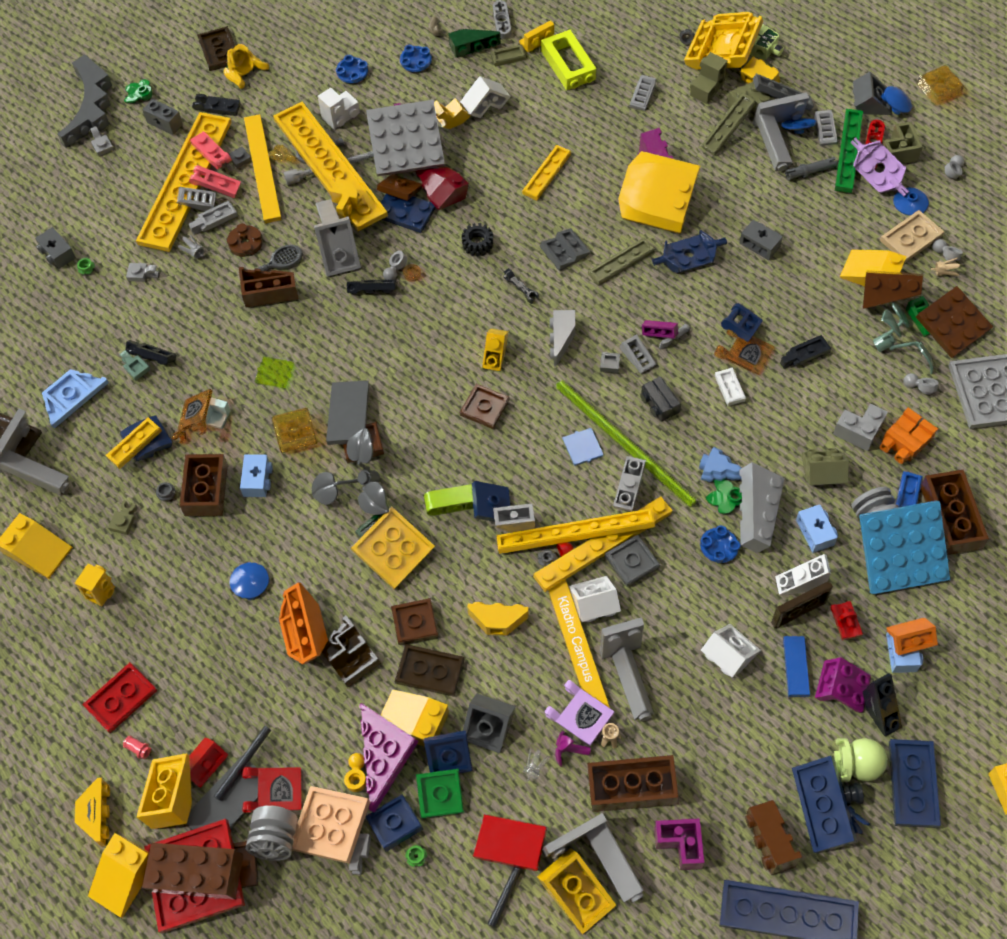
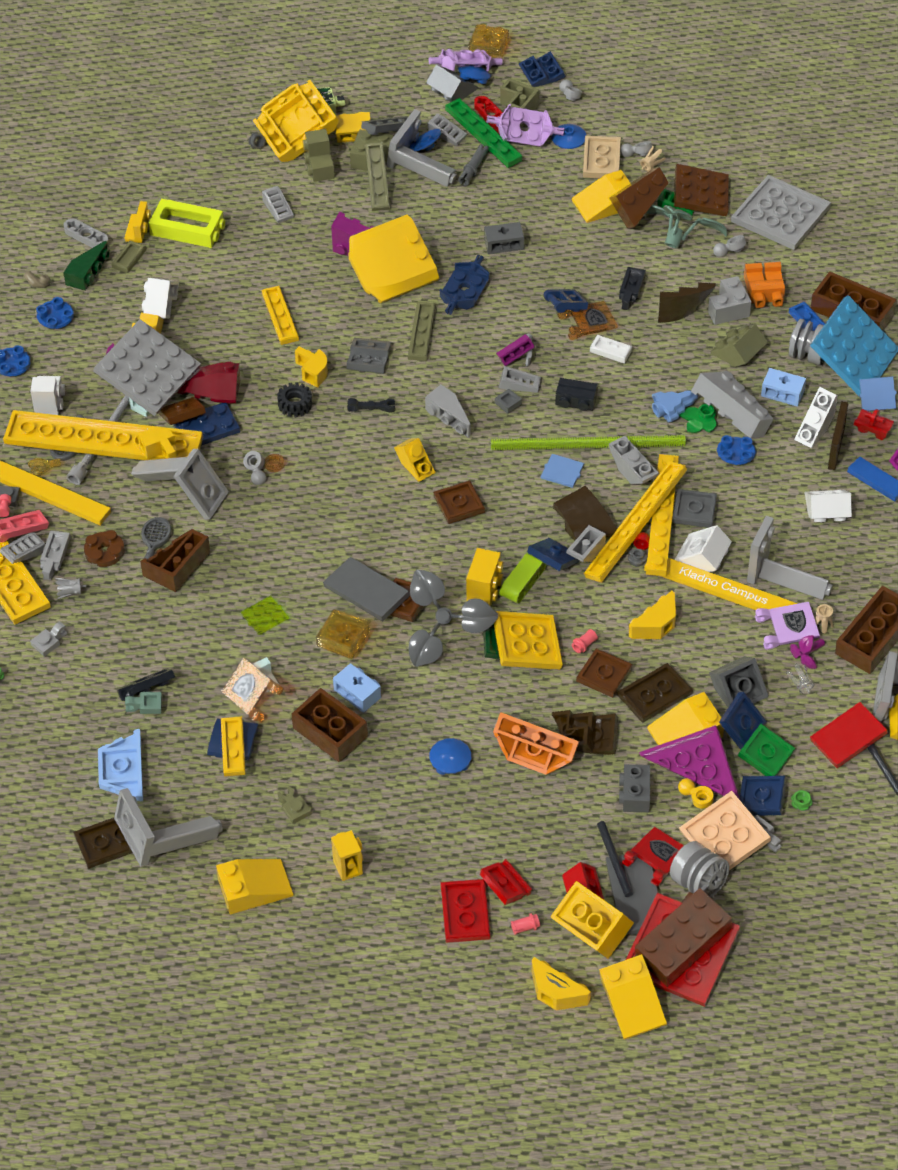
camera: 50 degrees left, 10 degrees down
(163, 704) = (505, 882): none -> red plate
(165, 491) = (301, 759): dark grey plate -> none
(322, 726) = (636, 788): none -> dark grey brick
(370, 286) = (257, 495): black hinge -> none
(421, 475) = (484, 576): none -> yellow brick
(432, 585) = (580, 644): none -> coral pin
(517, 229) = (313, 366): none -> yellow brick
(547, 493) = (583, 509): none -> dark brown slope
(820, 396) = (681, 304): none -> dark brown slope
(881, 600) = (877, 393): none -> medium blue piece
(902, 83) = (477, 58): none -> lavender plate
(954, 136) = (542, 70): none -> dark blue slope

